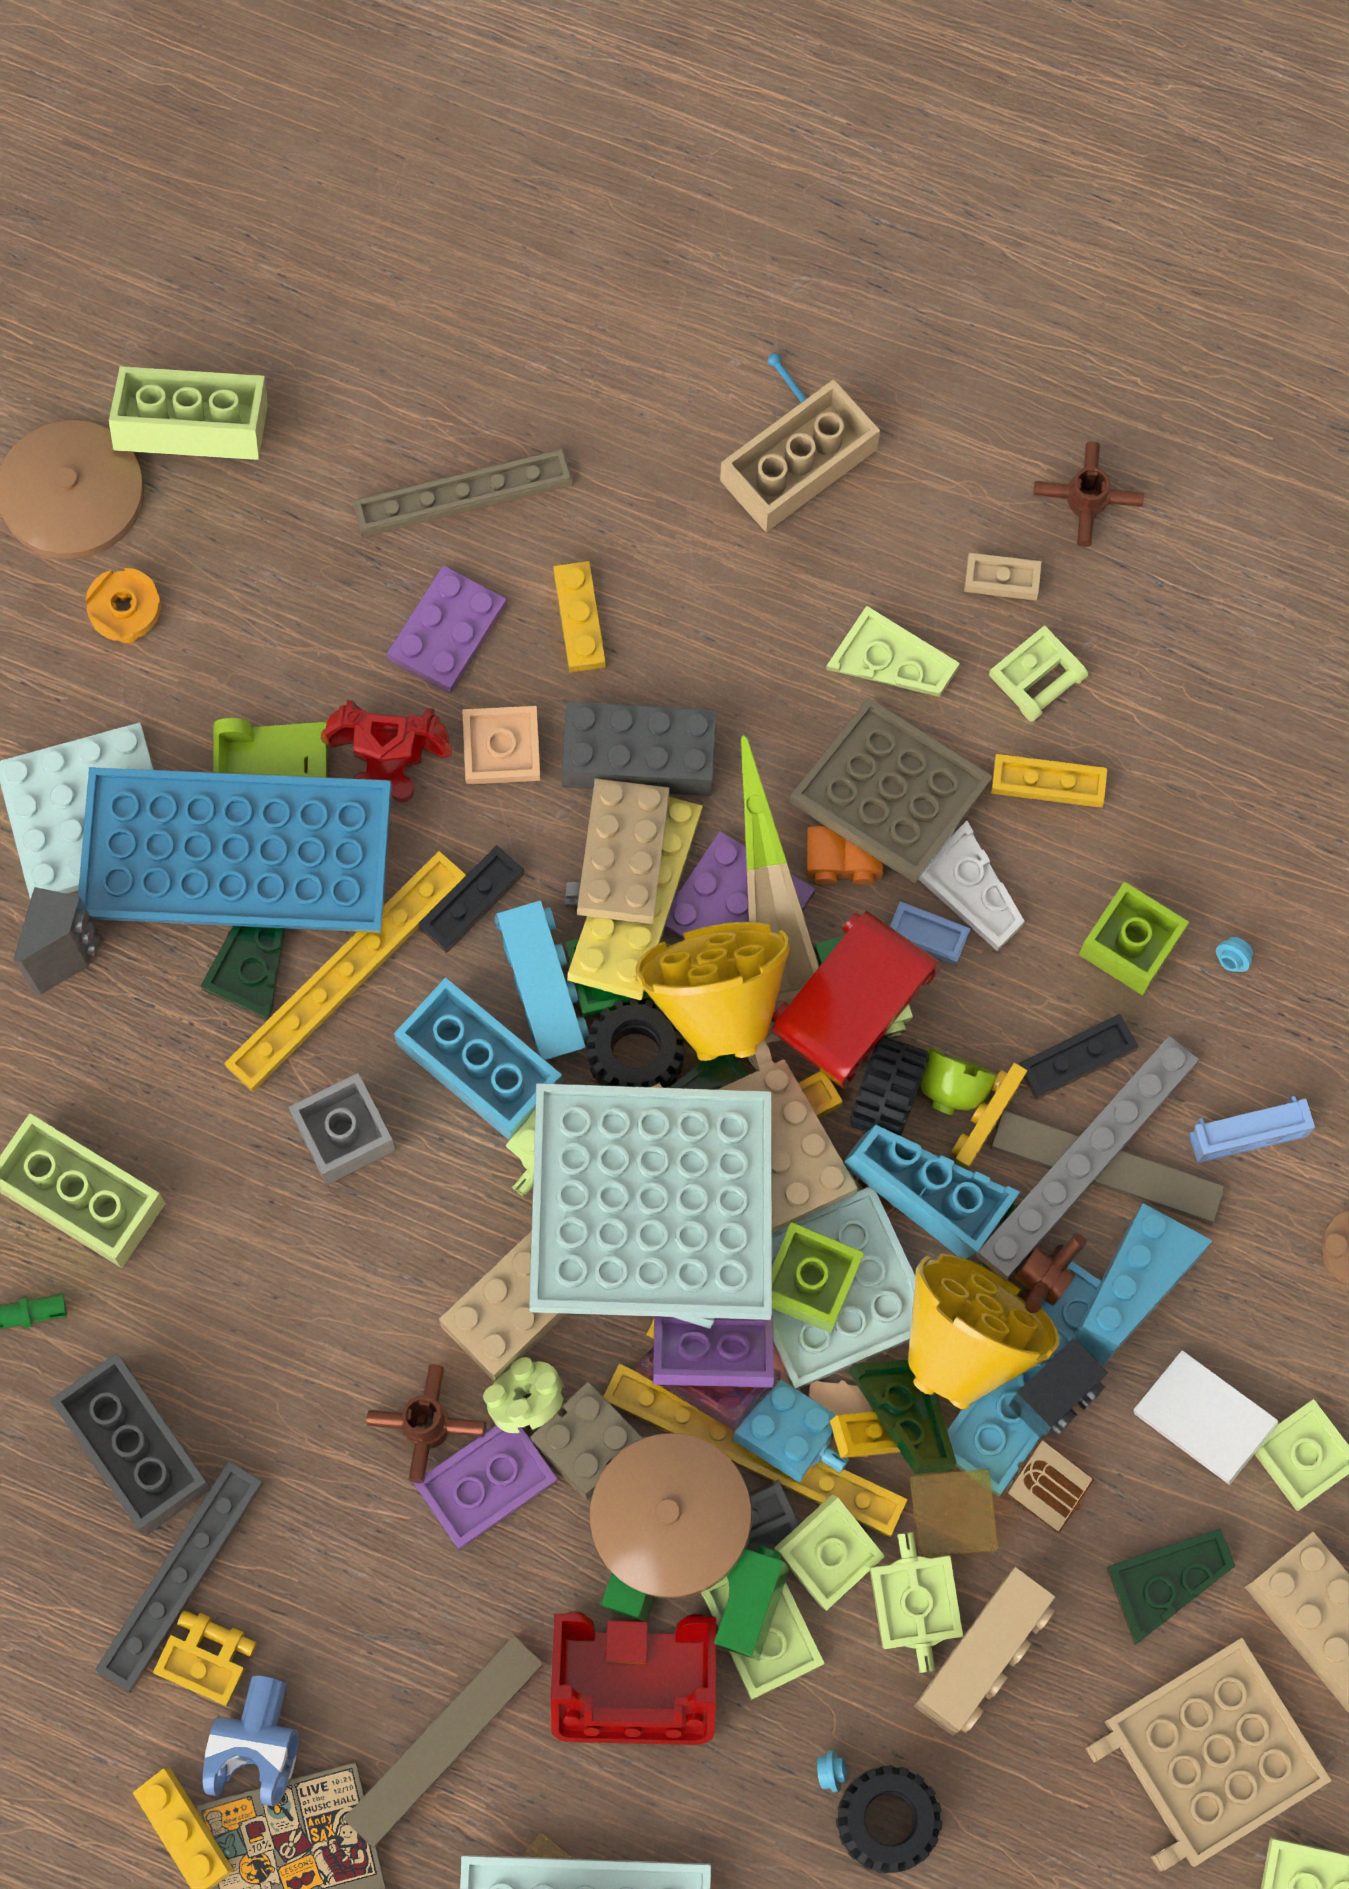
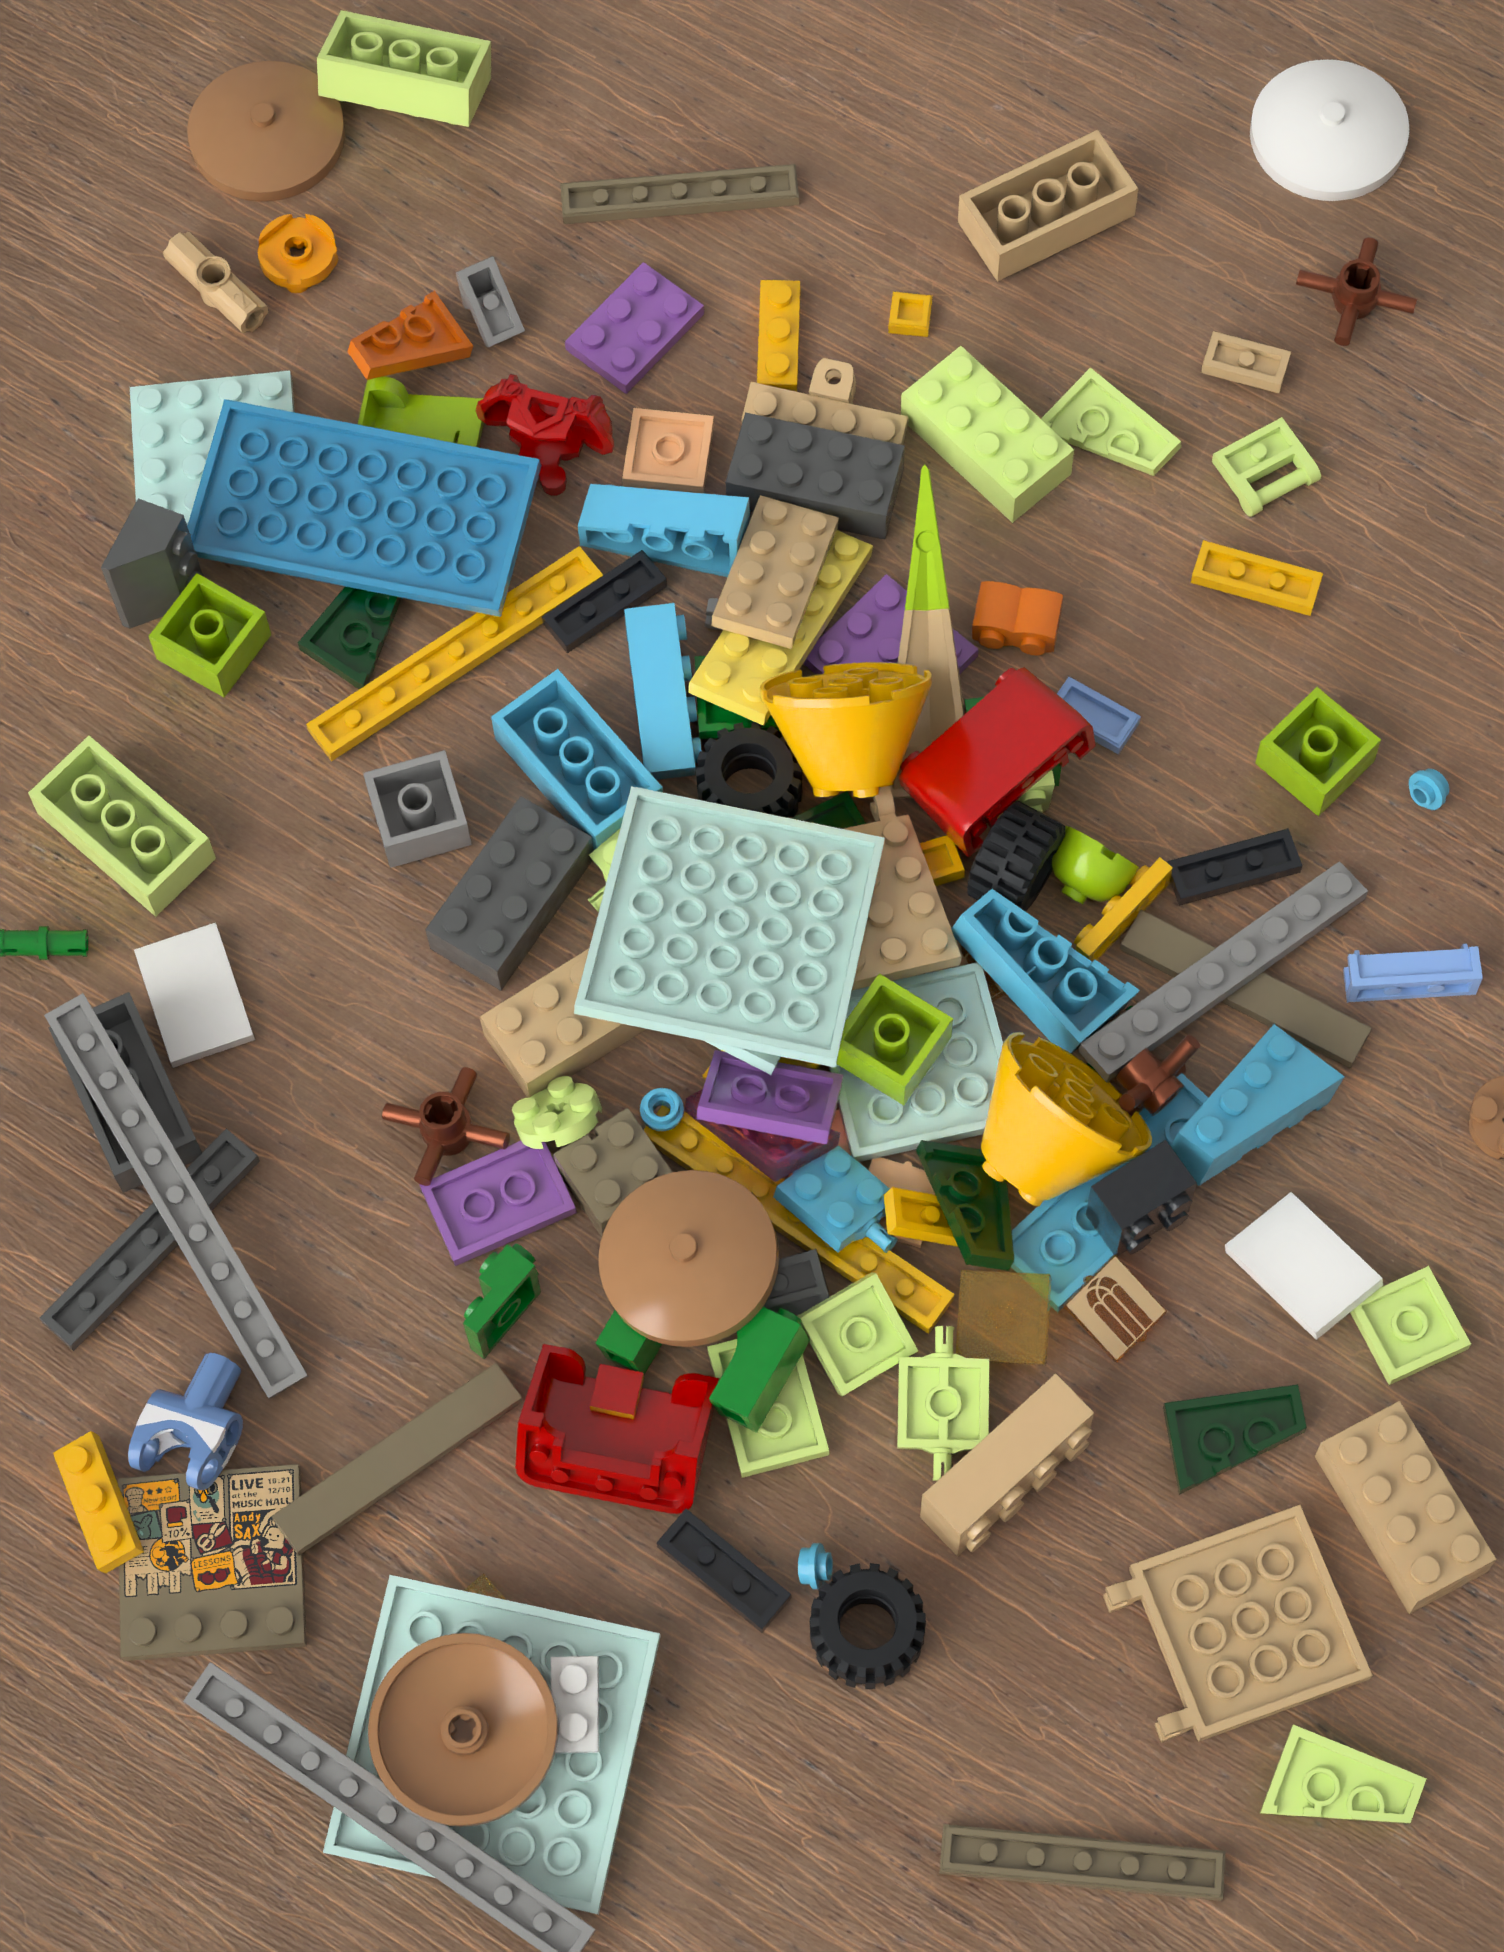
camera: 15 degrees right, 5 degrees down
(38, 634) = (202, 269): none -> tan piece
(119, 993) = (210, 635): none -> lime brick
(172, 1337) = (194, 995): none -> white tile
(199, 1539) = (176, 1196): none -> light grey plate
(201, 1670) = (153, 1340): yellow plate -> none
(247, 678) = (412, 341): none -> orange wing
(311, 628) = (489, 301): none -> light grey slope
(441, 1193) = (510, 893): none -> dark grey brick
(511, 1567) = (508, 1288): none -> green plate
(514, 820) = (669, 526): none -> medium azure wedge
(617, 1363) = (660, 1097): none -> medium azure plate
(636, 683) = (827, 405): none -> tan plate
(693, 576) = (910, 314): none -> yellow tile
(752, 1790) = (724, 1570): none -> black plate
(774, 360) = (1041, 110): dark azure hinge -> none
(784, 682) = (987, 434): none -> yellowish green brick
(891, 789) = (1079, 557): dark tan plate -> none
(970, 888) = (1146, 671): white wing -> none
(1035, 340) = (1329, 130): none -> white dish

